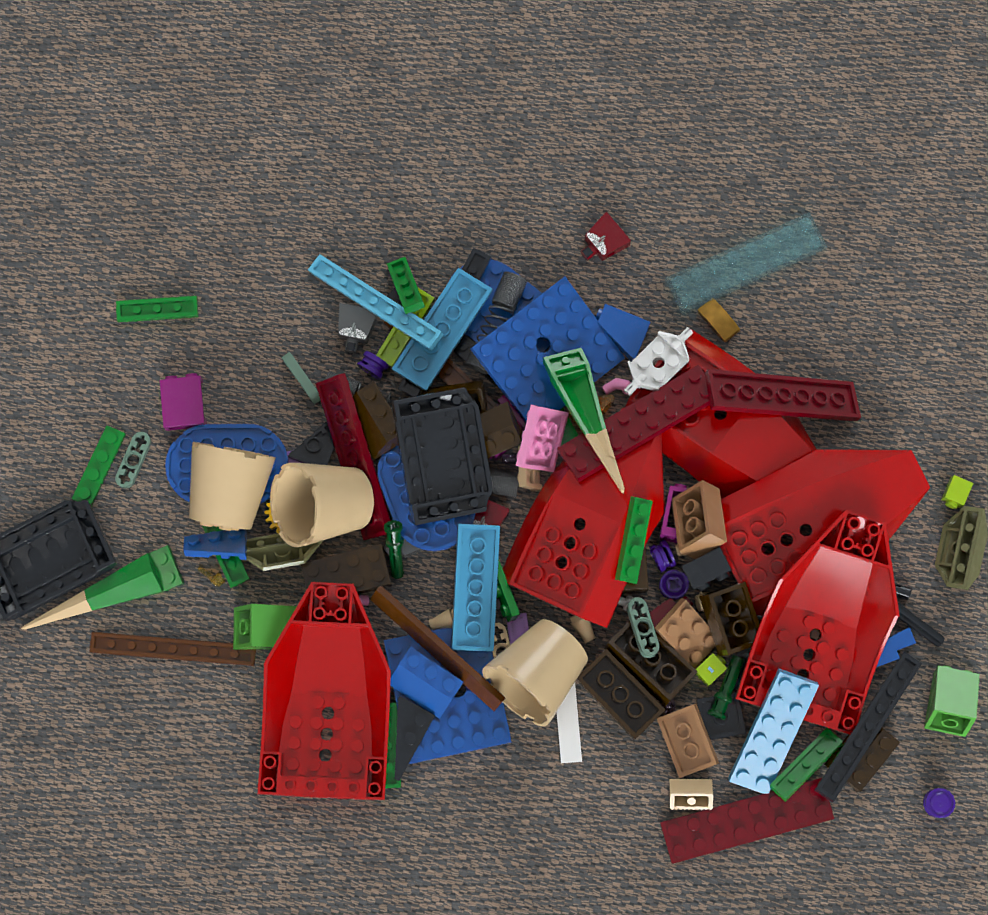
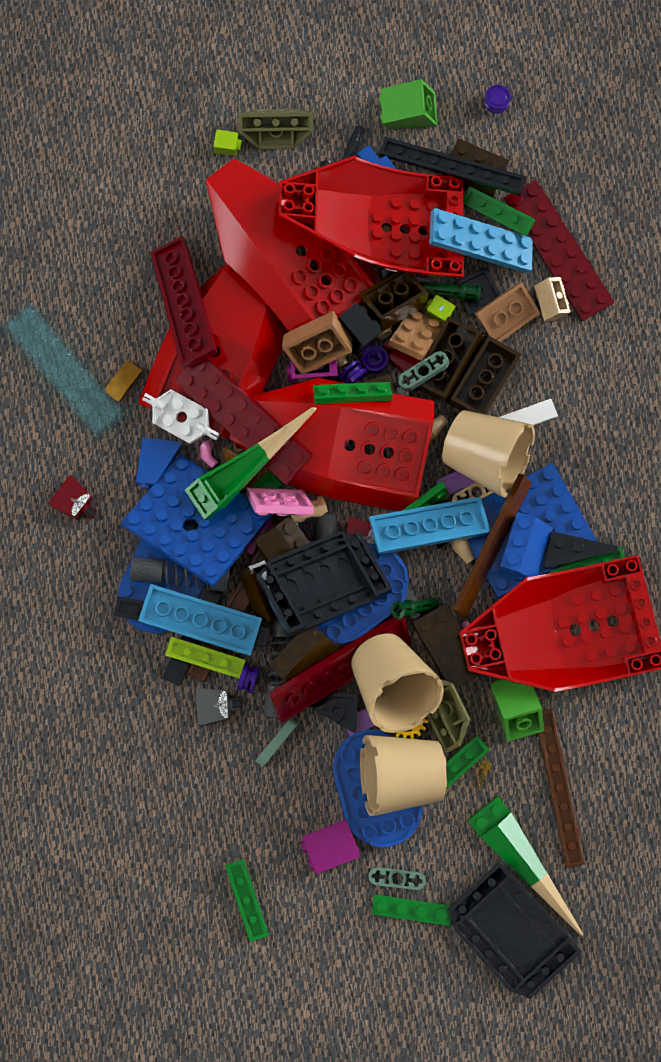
camera: 110 degrees left, 0 degrees up
(217, 543) = (457, 774): blue wing -> none
(375, 302) = (189, 690): medium azure plate -> none
(405, 285) = (166, 666): green plate -> none

